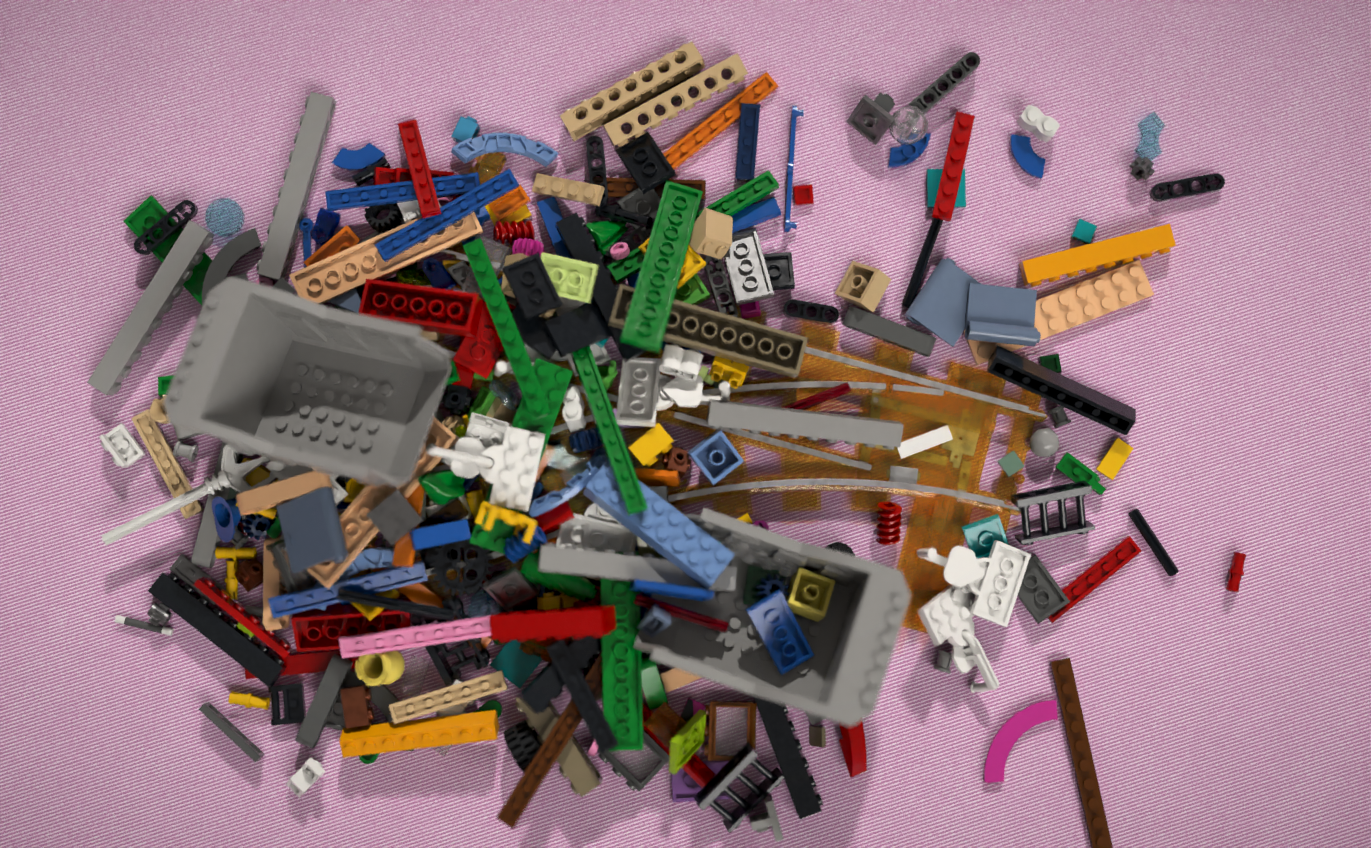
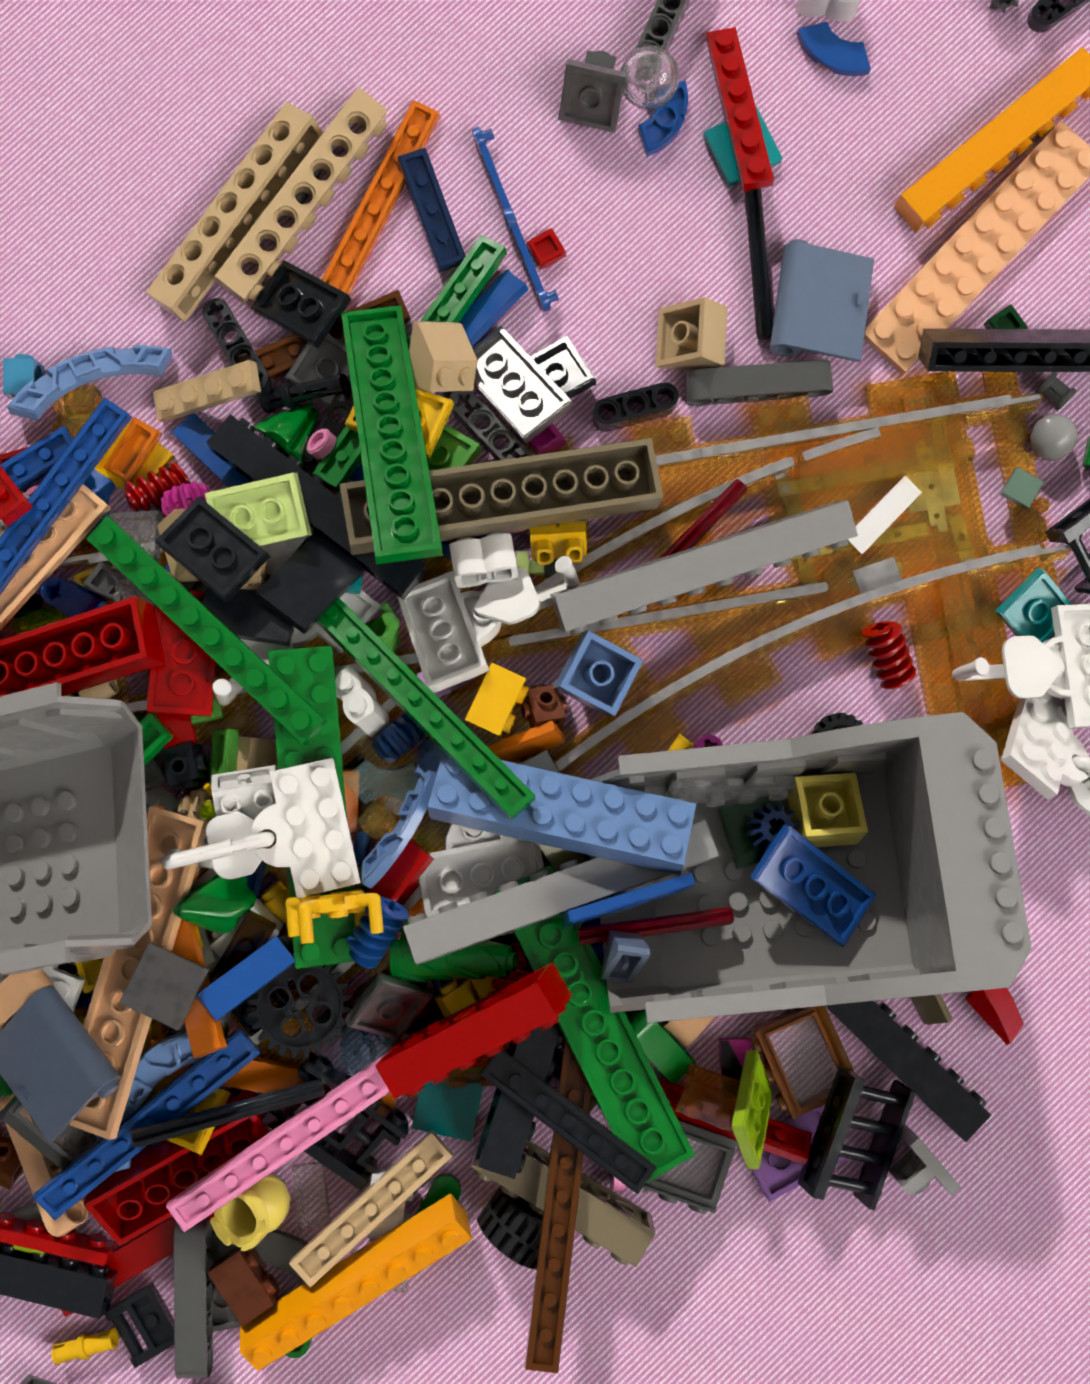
camera: 20 degrees left, 0 degrees up
(508, 397) = (252, 726): clear light blue tile -> none
(944, 661) = (1060, 814): light grey bush -> none
(1001, 315) = (908, 283): sand blue door -> none
(1083, 231) = (963, 118): teal tile -> none

